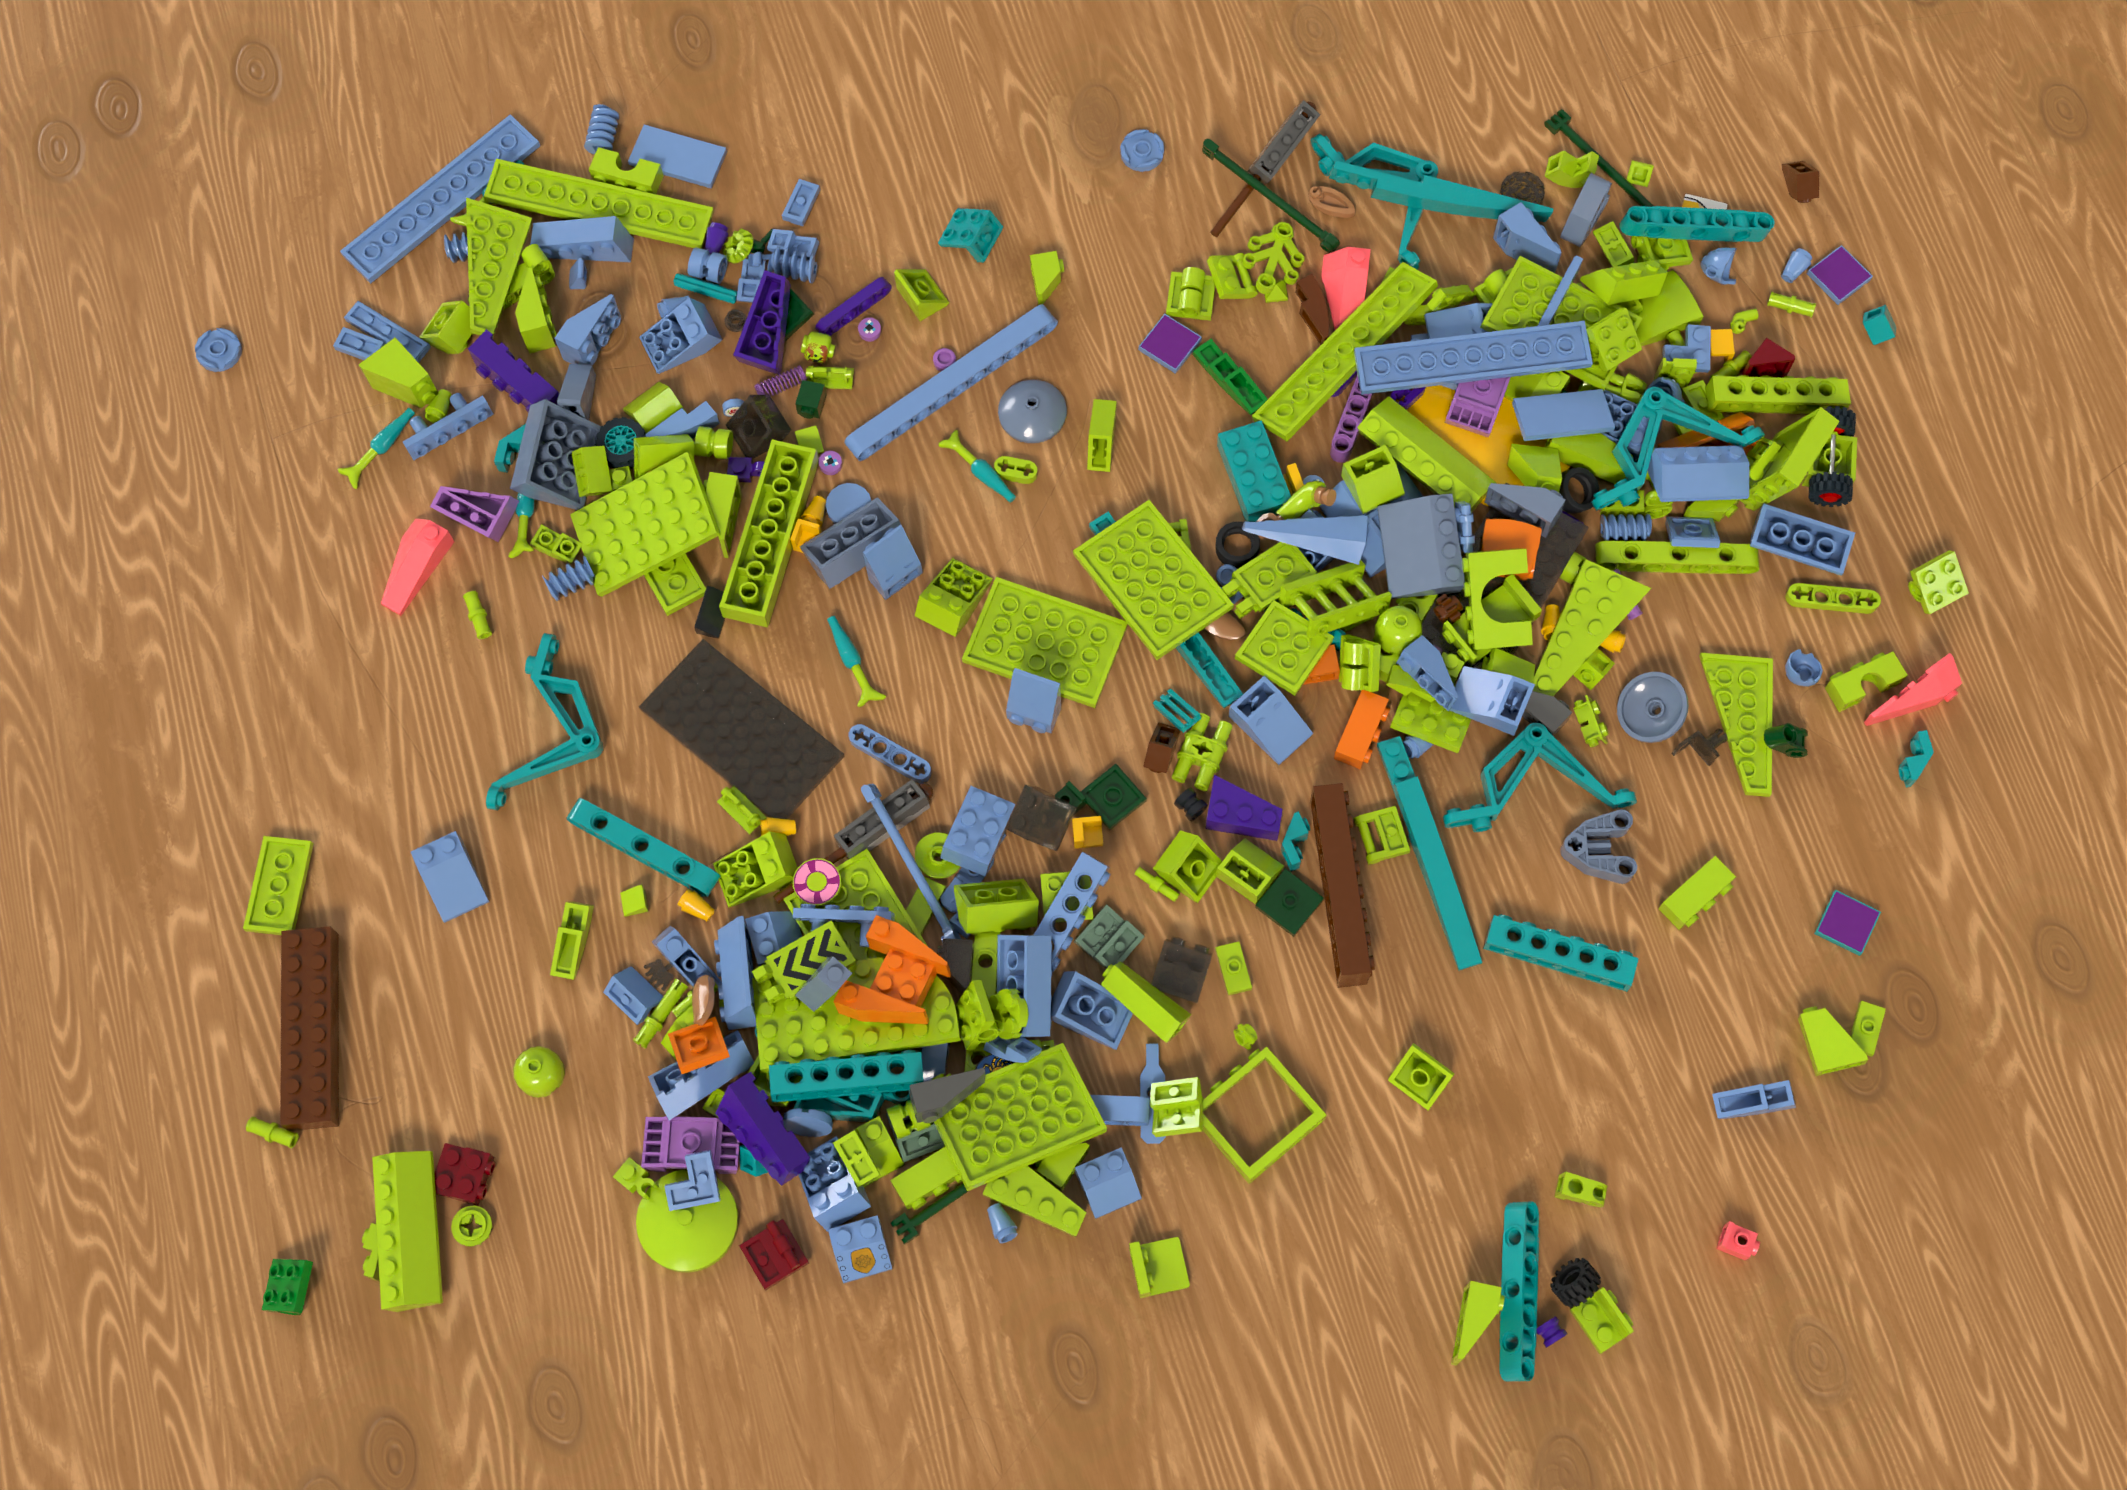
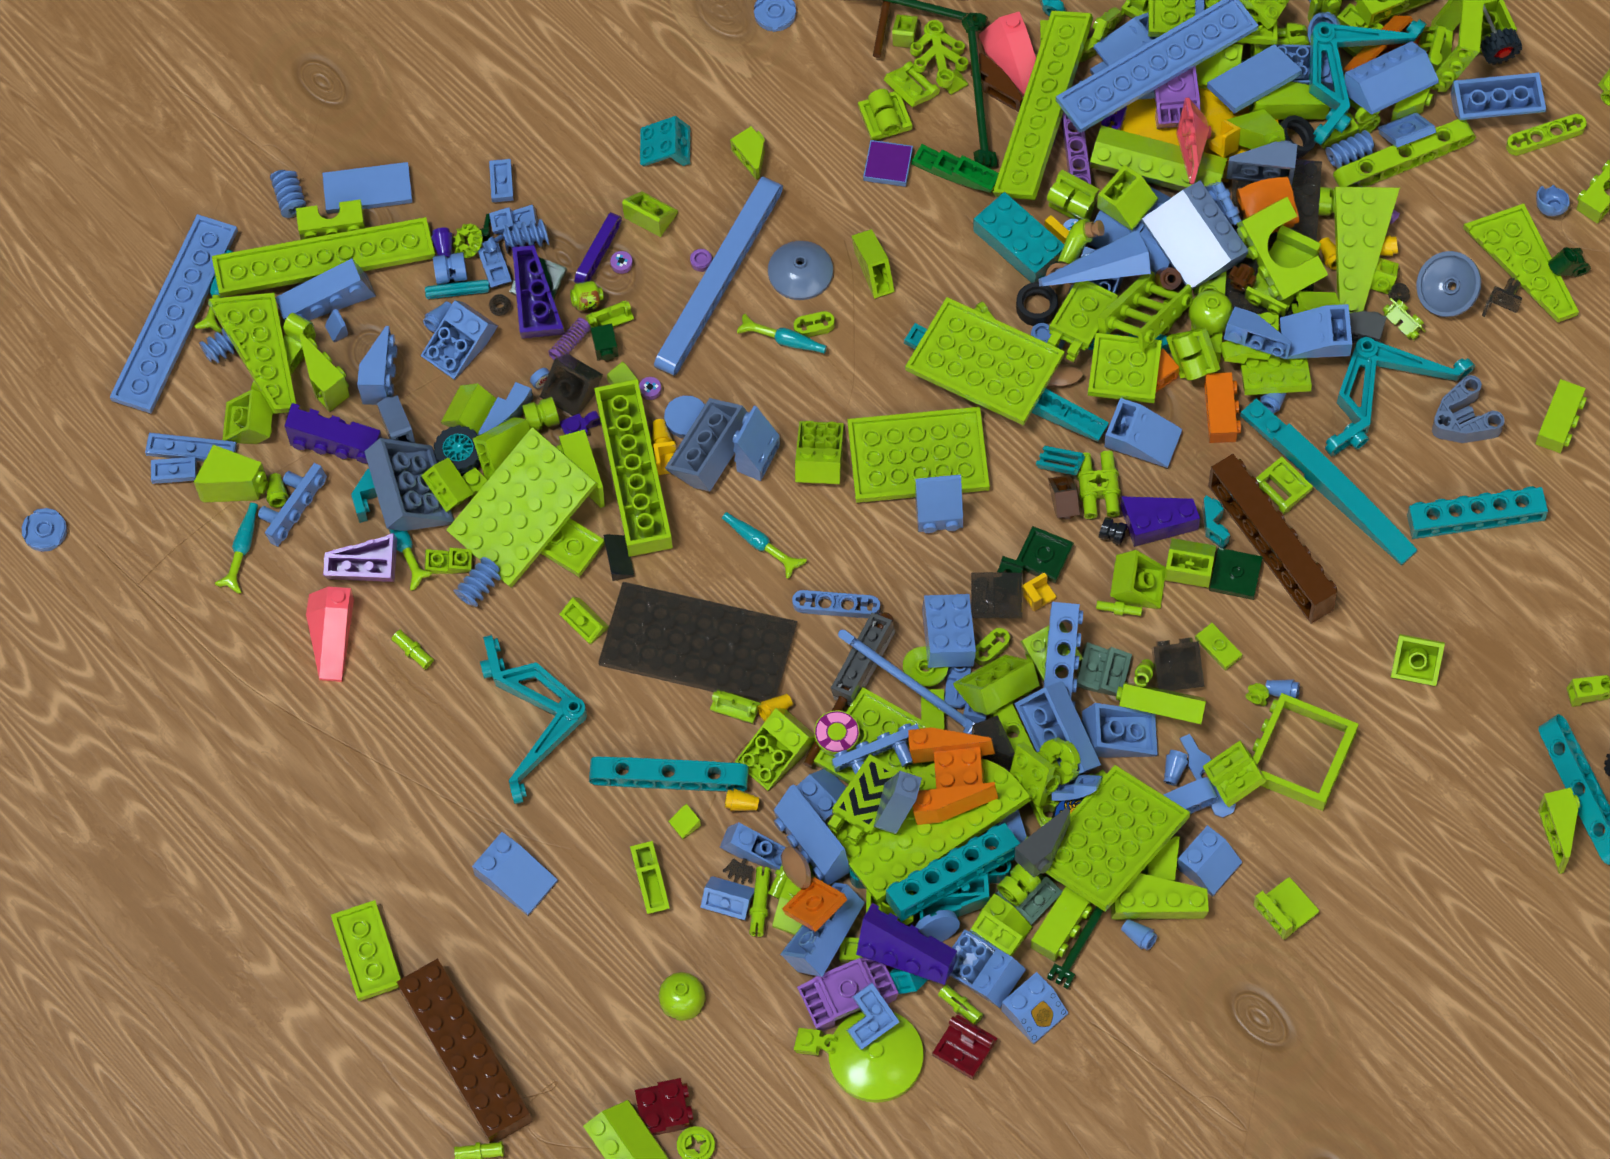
camera: 25 degrees left, 5 degrees down
(649, 659) = (583, 619): none -> lime slope
(792, 1210) = (949, 994): none -> lime pin
(1013, 859) = (994, 650): none -> lime beam
(1125, 1070) = (1174, 767): none -> medium blue cone
(1142, 962) = (1143, 672): none -> lime pin
(1252, 220) = (904, 30): none -> lime slope
(1264, 375) = (983, 156): none -> dark green hinge
(1275, 1042) = (1286, 687): none -> medium blue cone
(1325, 454) = (1072, 196): none -> lime plate
(1374, 569) = (1162, 275): none -> reddish brown brick
(1471, 448) = (1192, 137): none -> coral wedge
(1503, 466) = (1227, 141): none -> yellow panel
(1600, 688) = (1399, 288): none -> clear smoke plate

